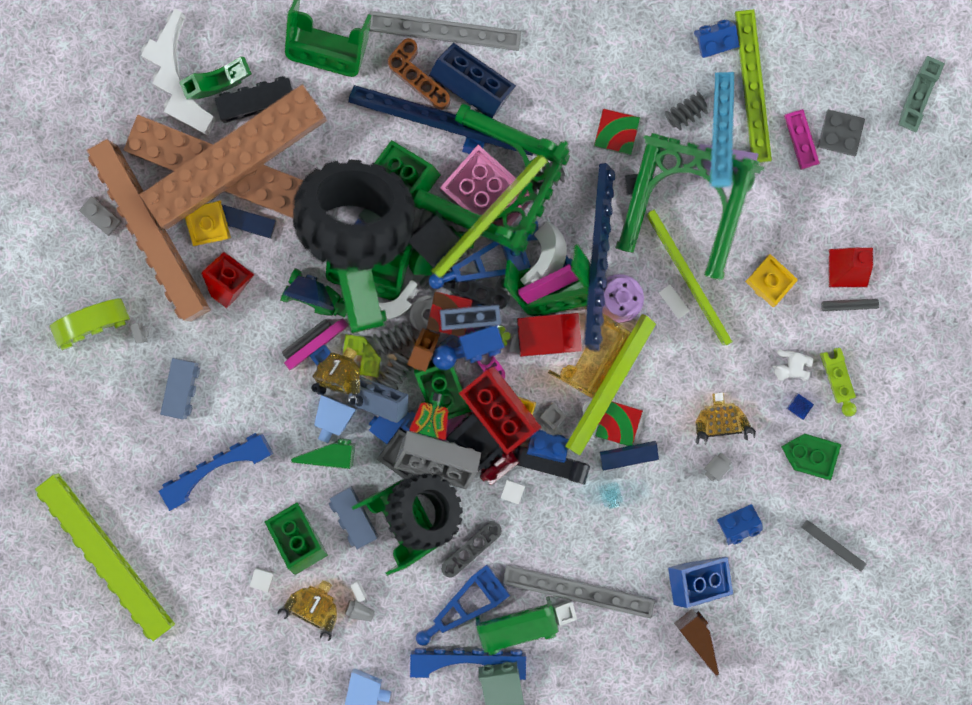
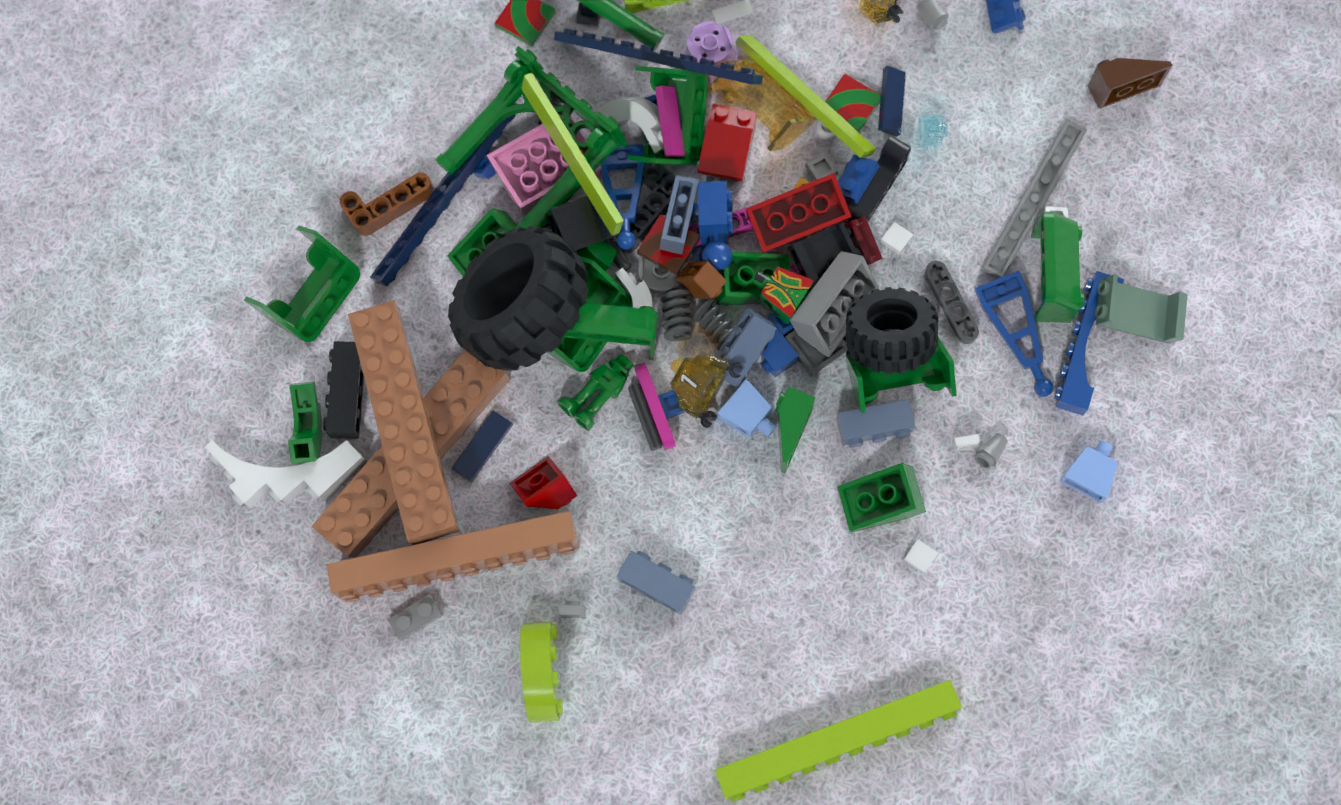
camera: 70 degrees left, 15 degrees down
(178, 492) = (783, 624): blue arch -> none
(208, 224) = (471, 487): yellow hinge -> none
(309, 291) = (592, 384): dark blue slope -> none
(313, 607) = (971, 500): clear yellow torso -> none
(370, 359) = (689, 349): lime tile -> none
(445, 31) = (348, 161): light grey tile -> none
(472, 80) = (413, 148): dark blue slope -> none
(700, 581) = (1058, 66): blue slope -> none

